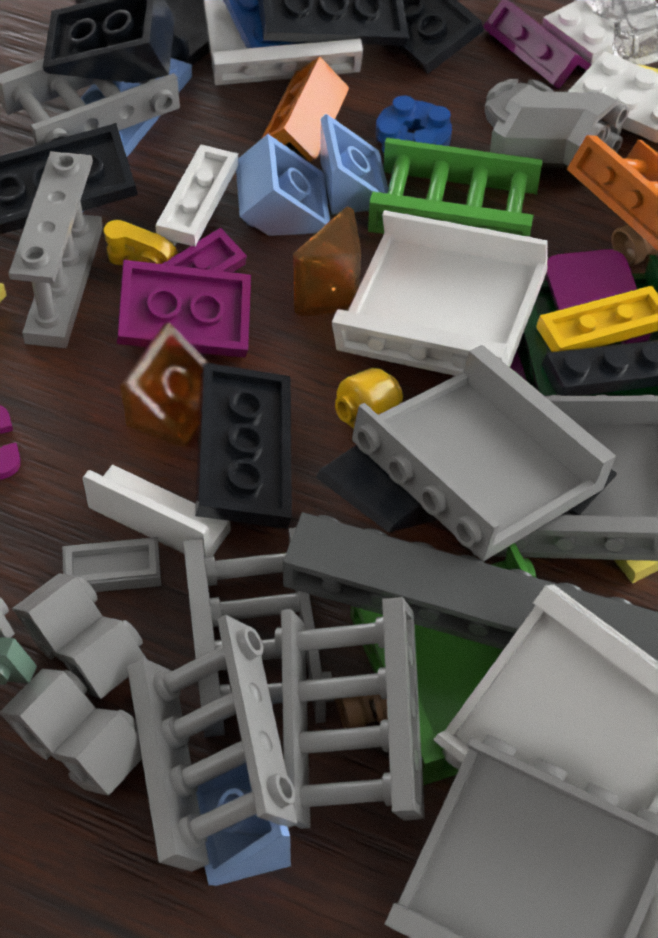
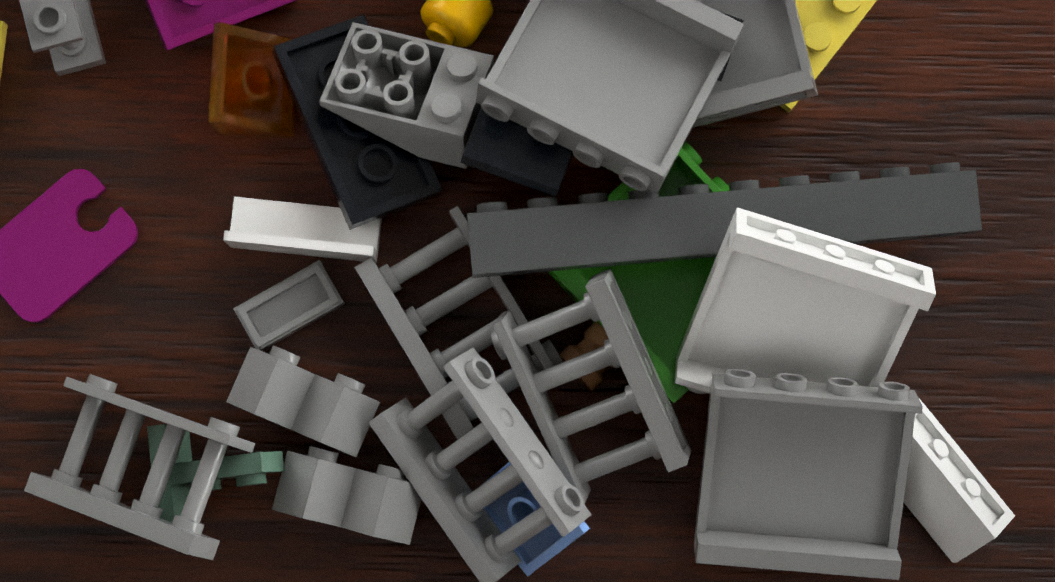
camera: 20 degrees left, 30 degrees up
(292, 430) = (408, 91): none -> light grey slope

